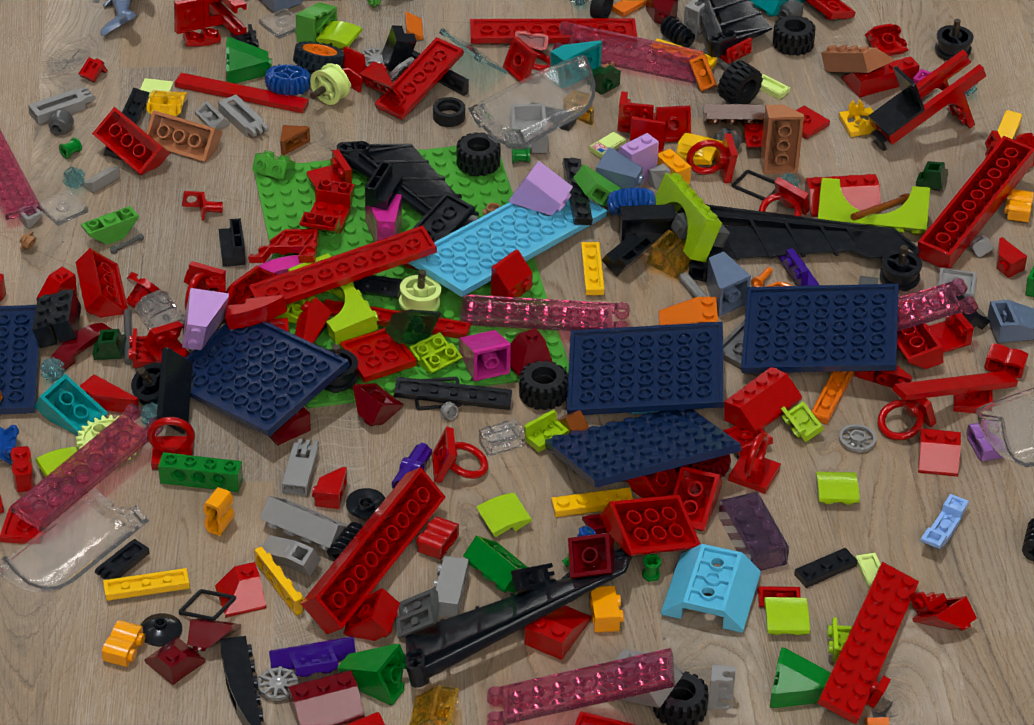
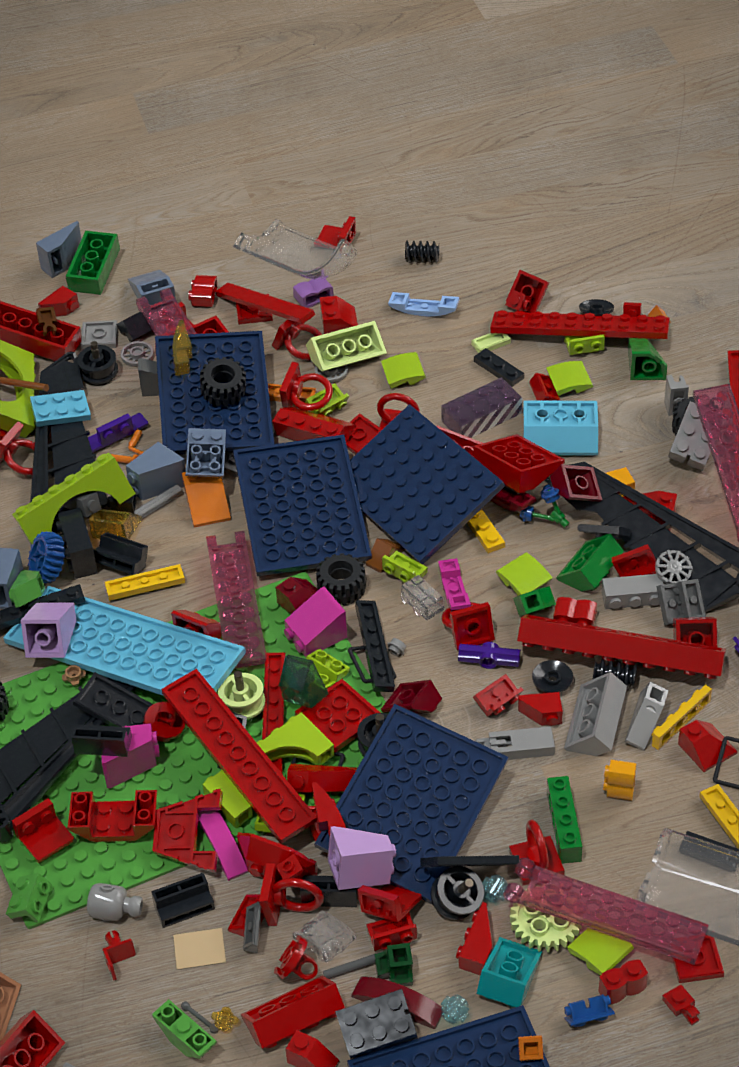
camera: 100 degrees left, 5 degrees up
(115, 256) = (224, 1019): none -> clear yellow plate
(177, 273) = (252, 928): none -> dark grey slope
(189, 251) = (199, 948): none -> tan sticker
(248, 203) = (111, 902): none -> light grey piece
(360, 463) = (497, 695): none -> red bracket
(457, 610) = (673, 566): none -> light grey wheel
(462, 508) = (534, 601): none -> green slope
(473, 595) = (635, 562): none -> red bracket
(506, 464) = (453, 584): none -> dark pink slope
(727, 305) = (206, 452): none -> sand blue slope
(814, 385) = (293, 385): none -> red tile
(818, 322) = (225, 370): none -> black tyre
(835, 234) = (60, 408): none -> medium azure plate
(871, 295) = (181, 350): none -> clear yellow slope
(878, 445) = (346, 346): none -> yellowish green slope
(901, 666) = (596, 307): none -> black dish
(957, 225) = (47, 318): none -> reddish brown plate

